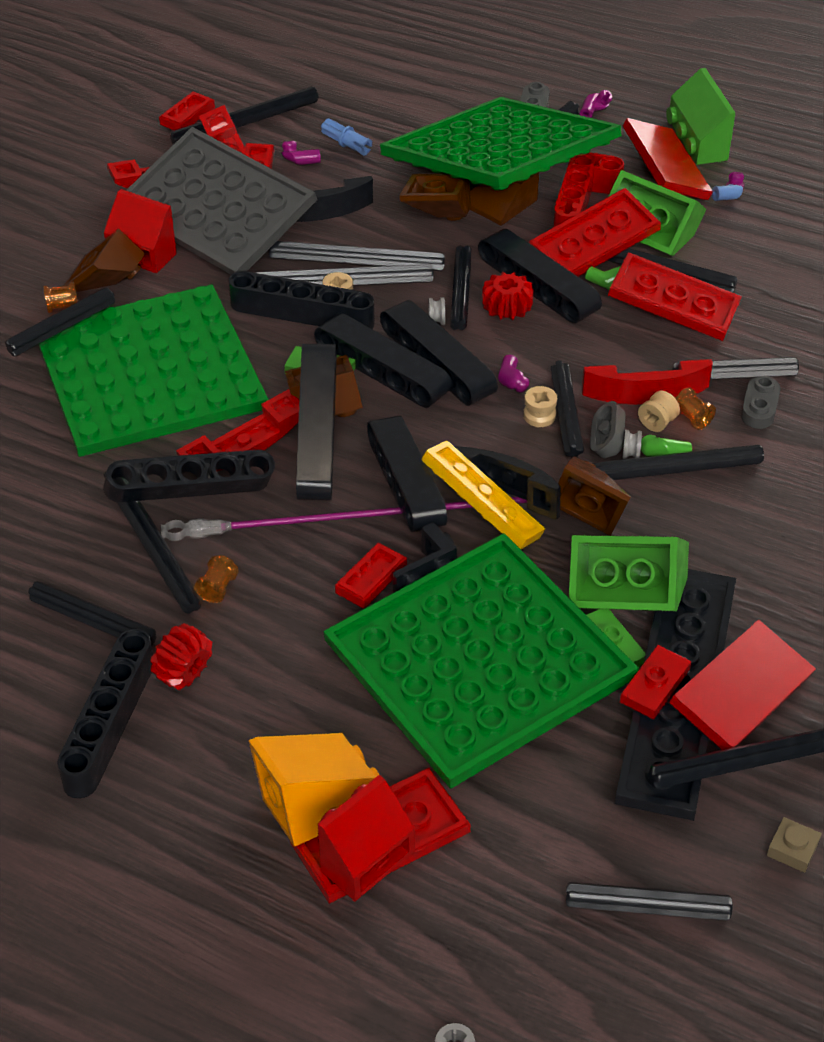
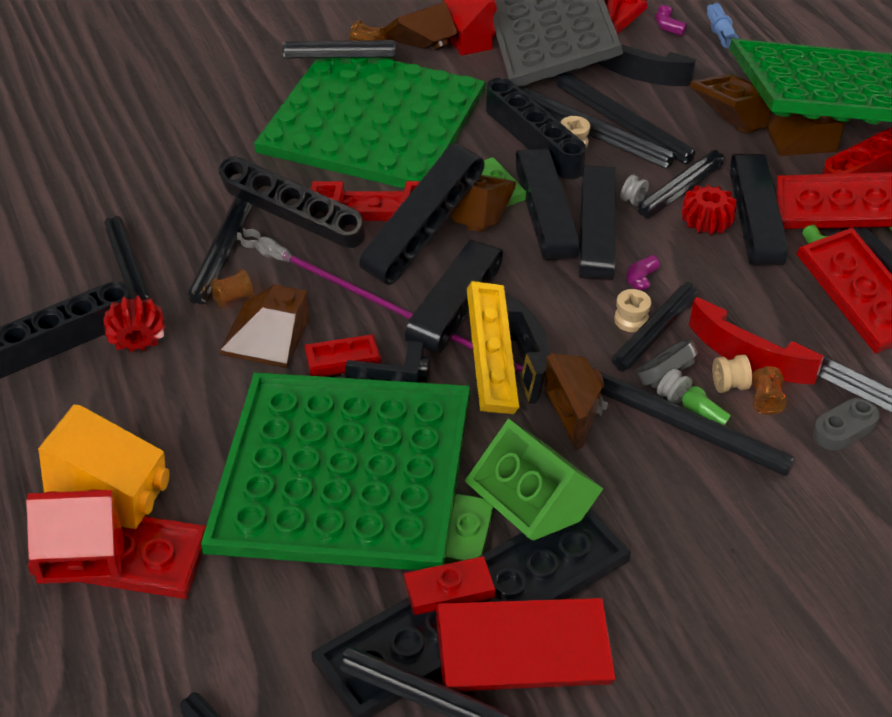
camera: 40 degrees right, 0 degrees up
(283, 589) = (269, 327): none -> slope

